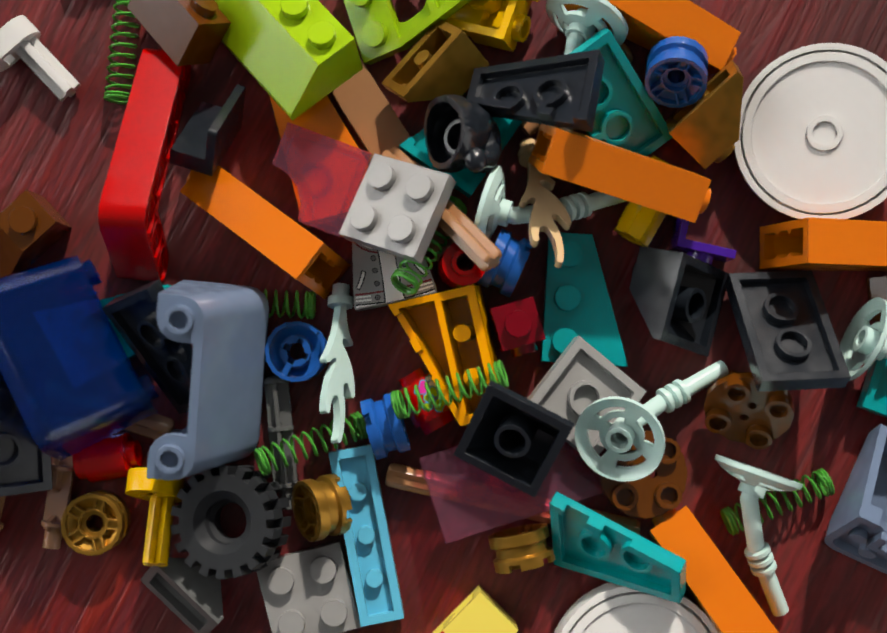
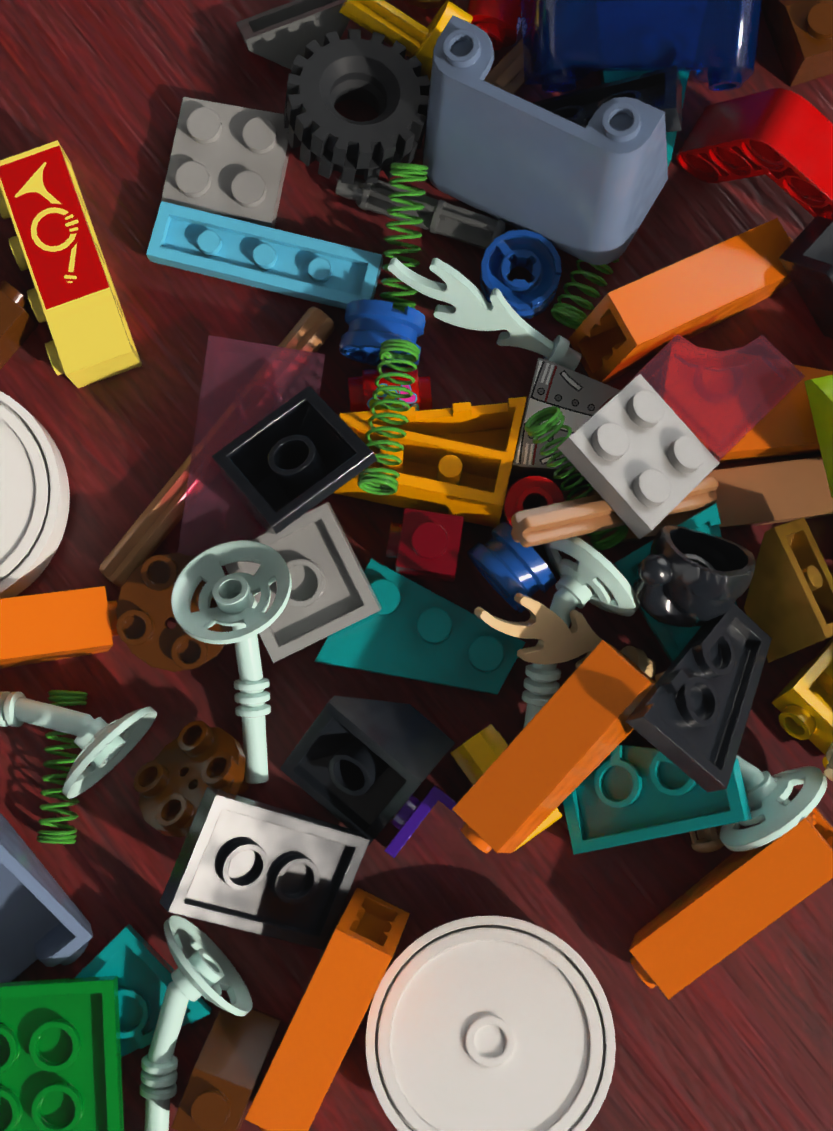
camera: 125 degrees right, 5 degrees down
(321, 507) = (322, 215): pearl gold wheel -> none
(521, 548) = (160, 426): pearl gold wheel -> none
(613, 553) = (101, 525): teal wing -> none
(663, 72) = (654, 887): blue wheel -> none
(712, 122) = (573, 902): pearl gold slope -> none

